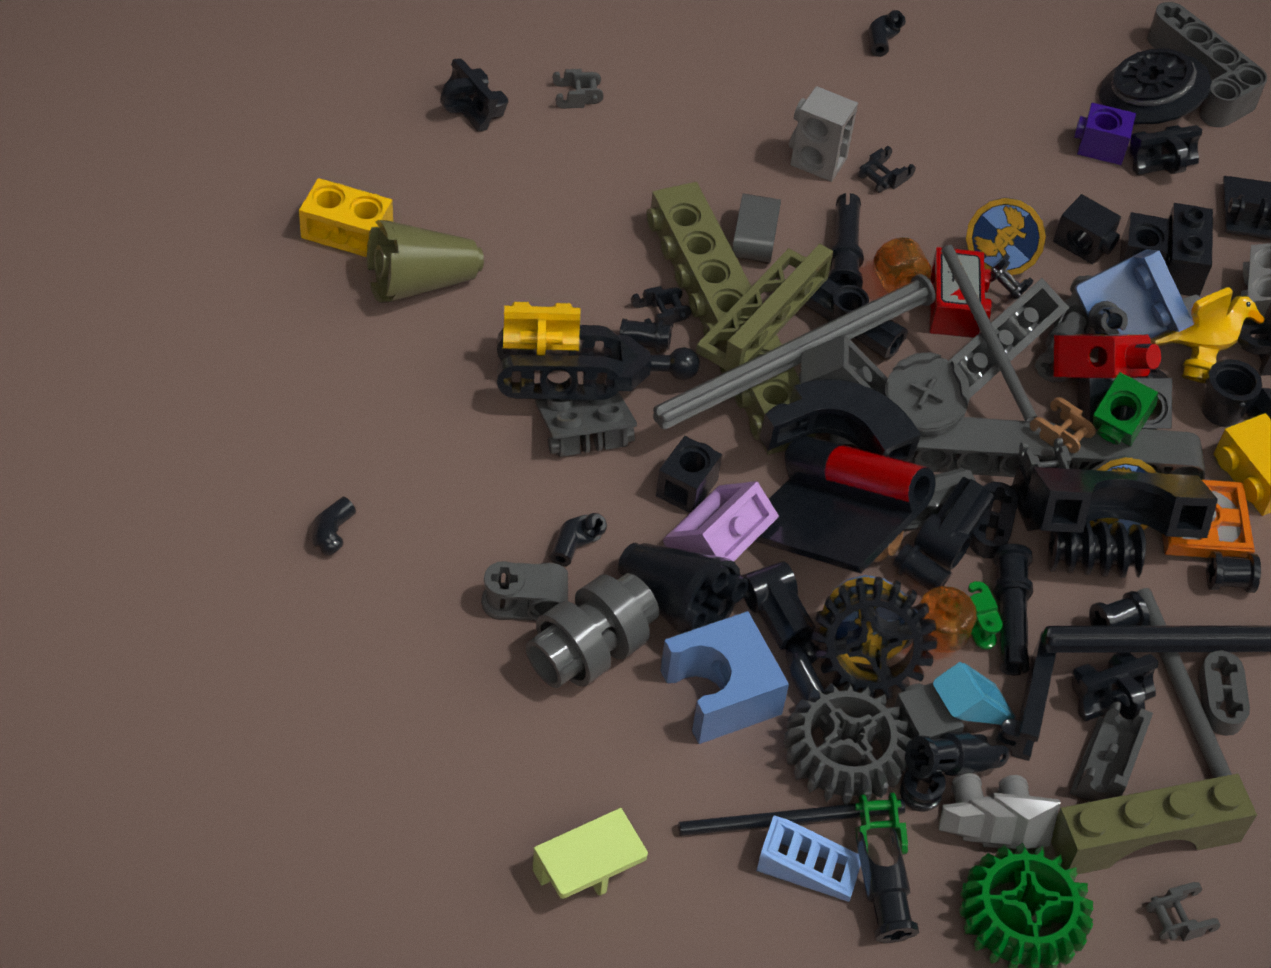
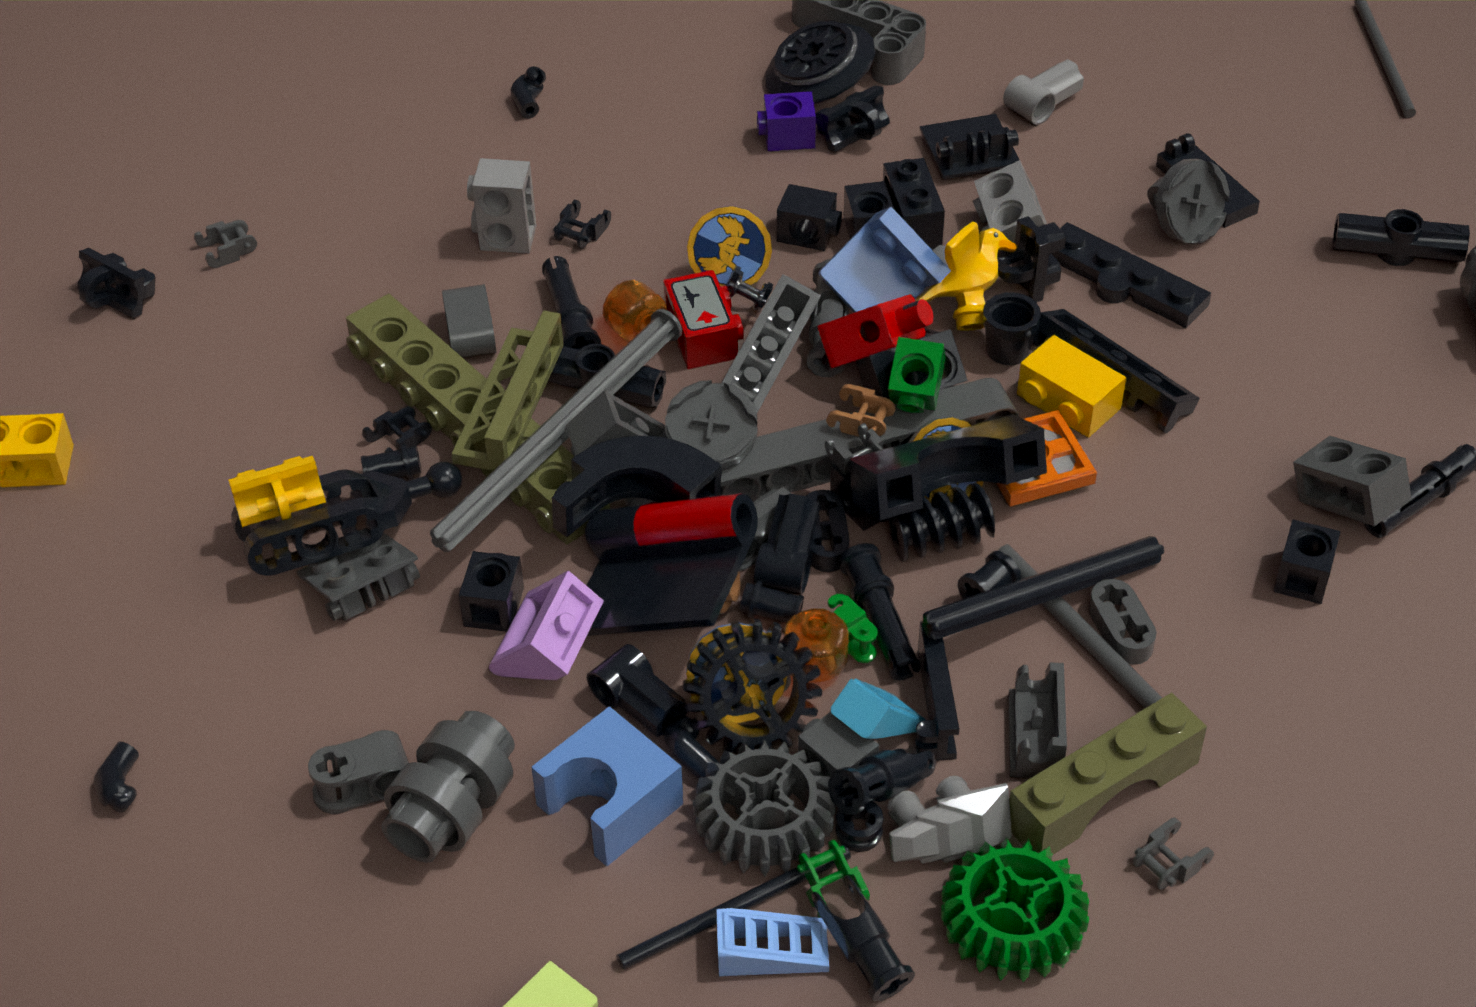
camera: 15 degrees left, 5 degrees down
(418, 260) = (114, 467): olive cone -> none
(577, 533) = (394, 692): black arm -> none
(687, 585) = (533, 702): black cone -> none
(989, 333) = (751, 344): dark grey axle -> none
(1098, 317) = (854, 292): black pin -> none
(1130, 675) = (1023, 633): black hips -> none
(1233, 572) = (1084, 499): black bush -> none

